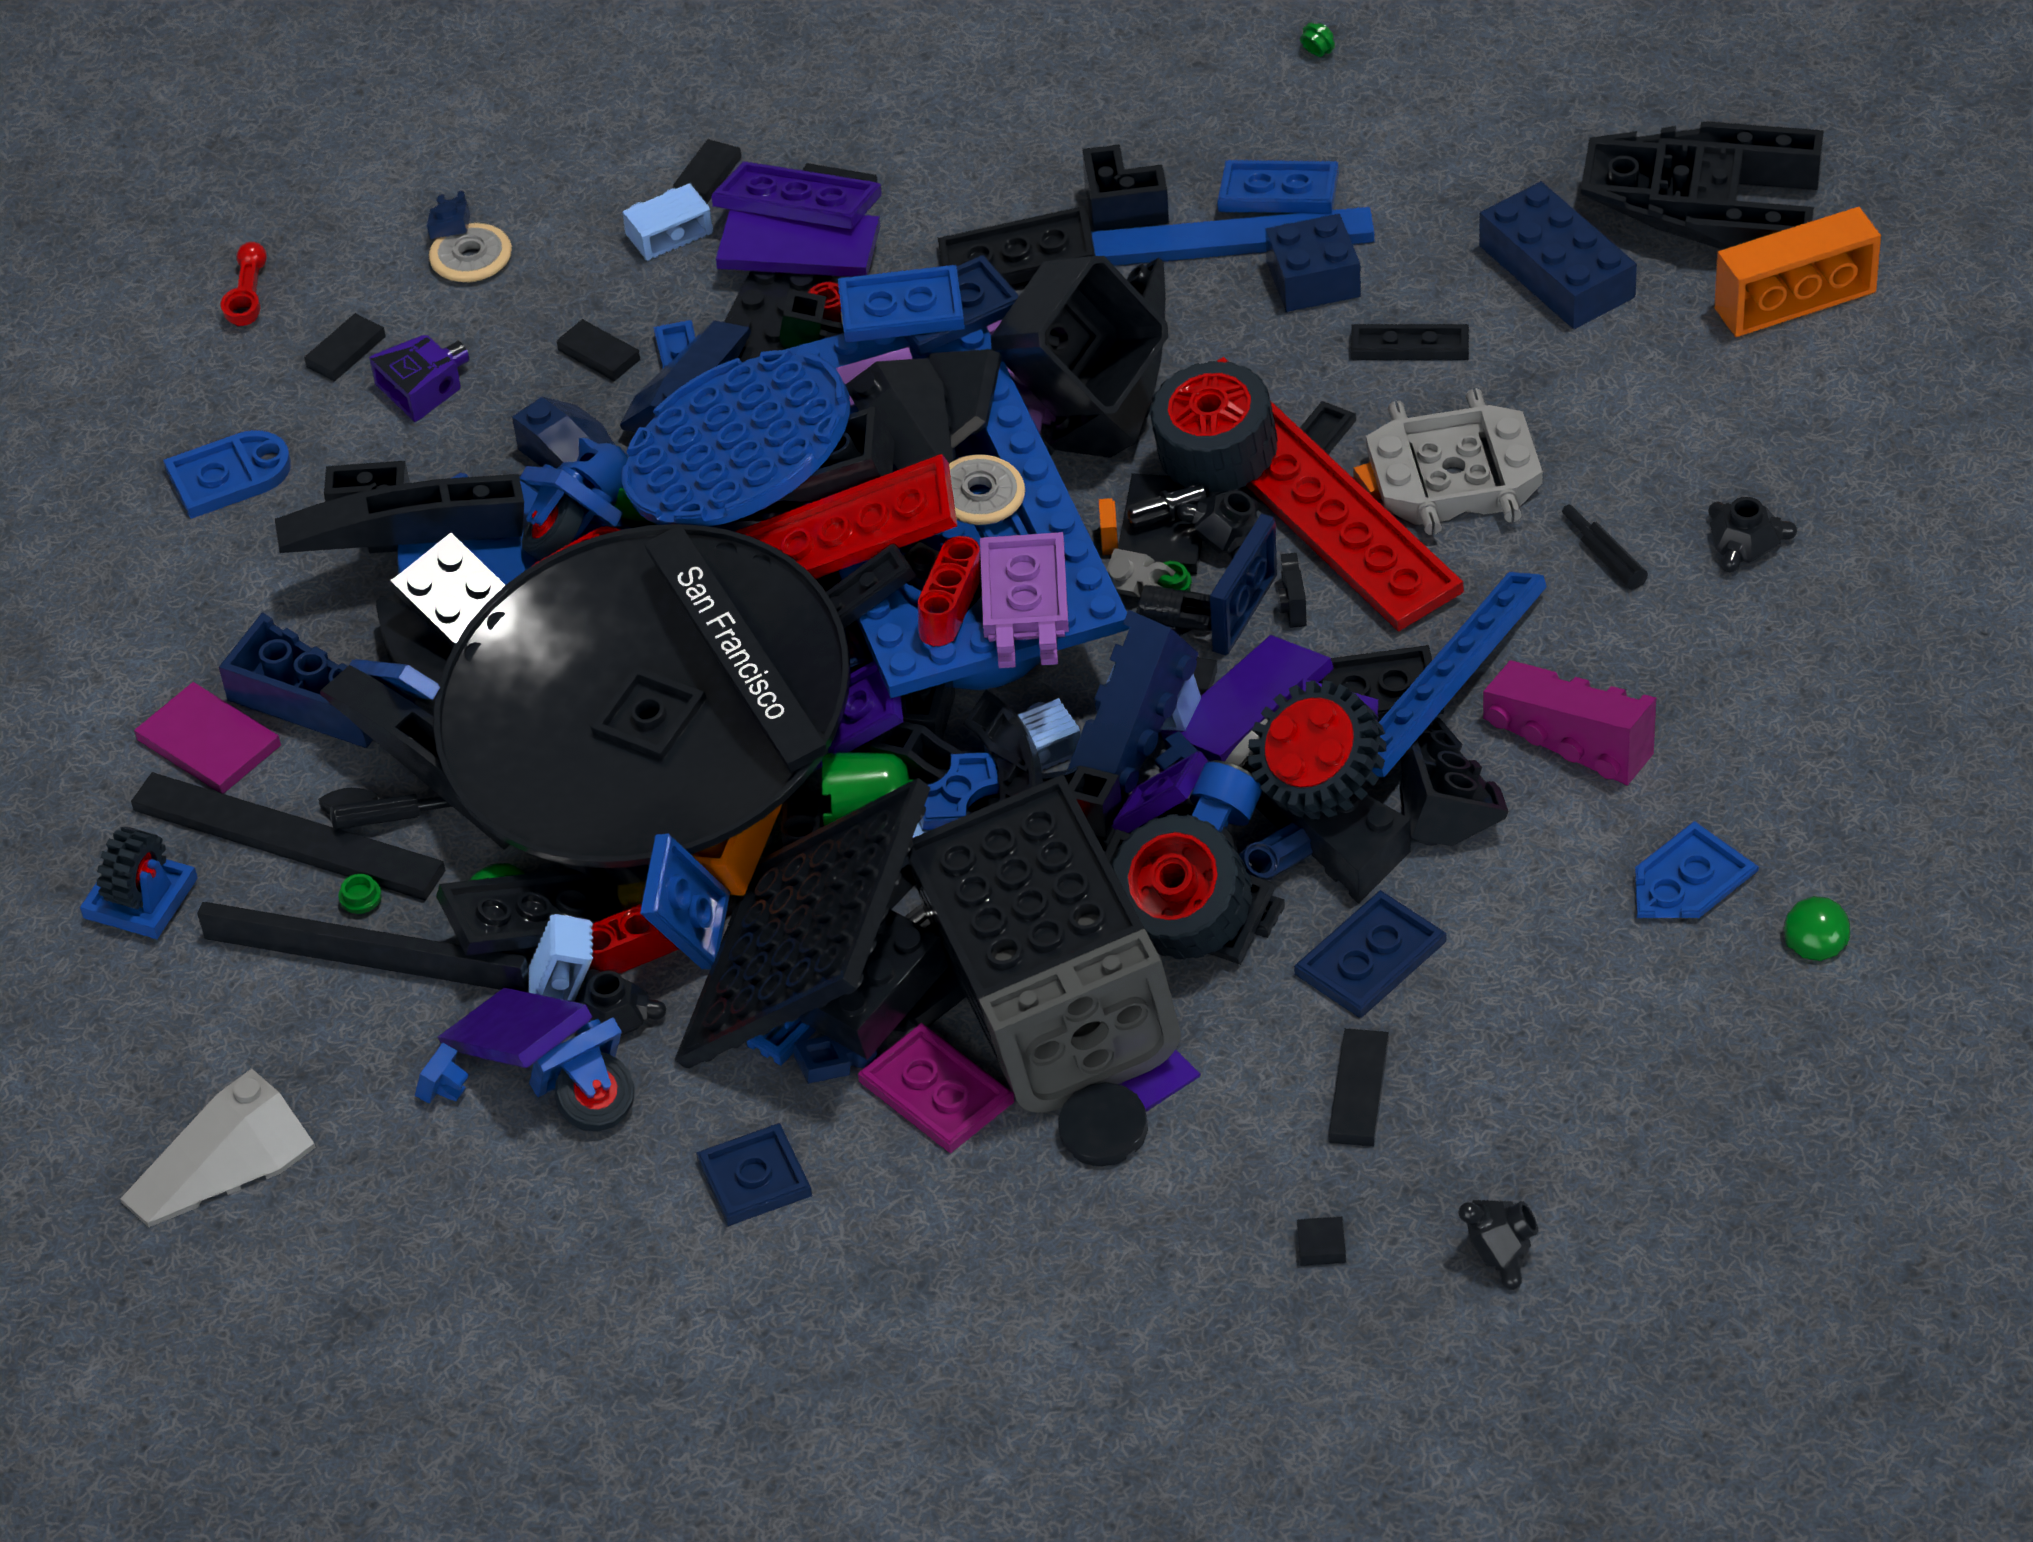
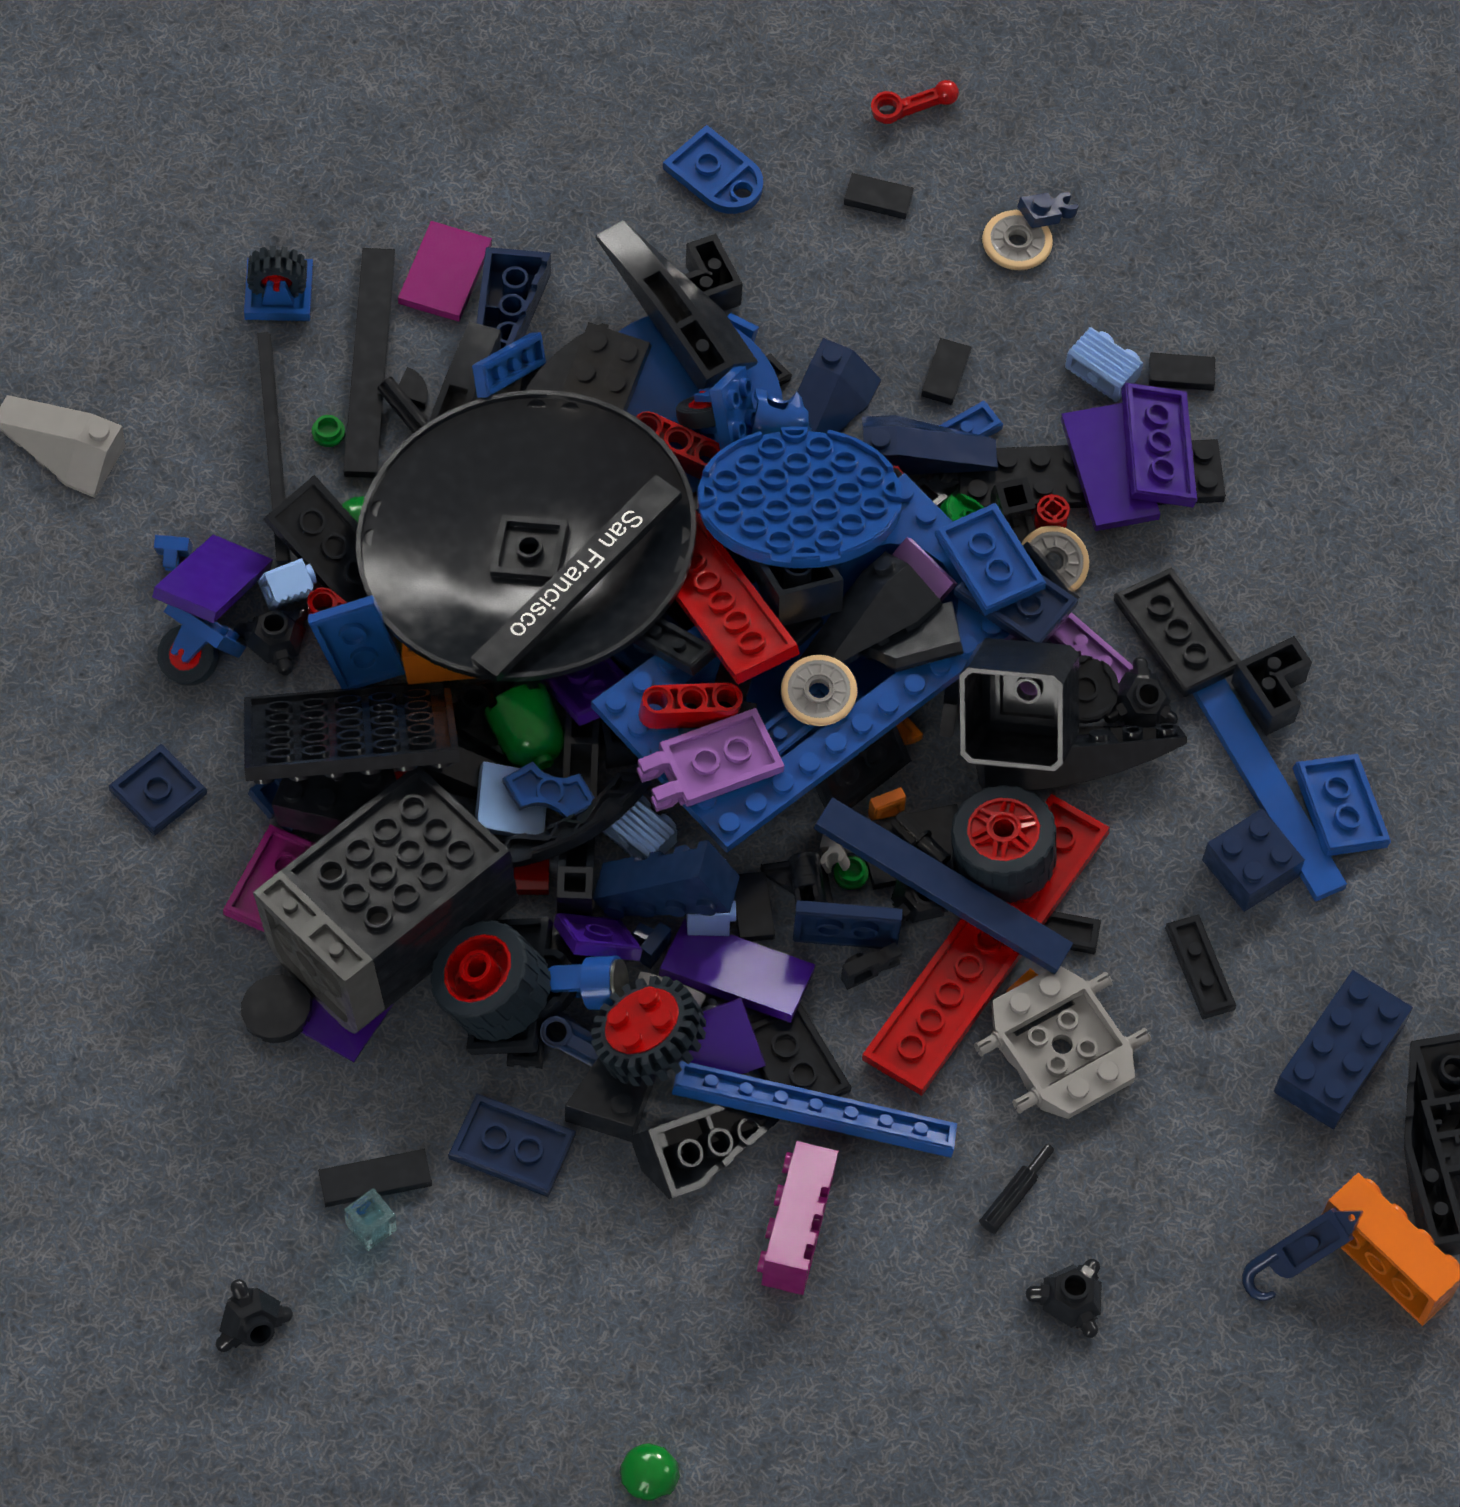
camera: 60 degrees right, 15 degrees up
(419, 374) = (861, 258): dark purple torso -> none
(1241, 483) = (943, 885): none -> dark blue tile
(1321, 1241) = (217, 1197): black tile -> none
(1420, 1089) = (370, 1219): none -> clear light blue brick
(1689, 875) = (674, 1358): blue tile -> none
(1774, 328) = (1302, 1249): none -> dark blue plate

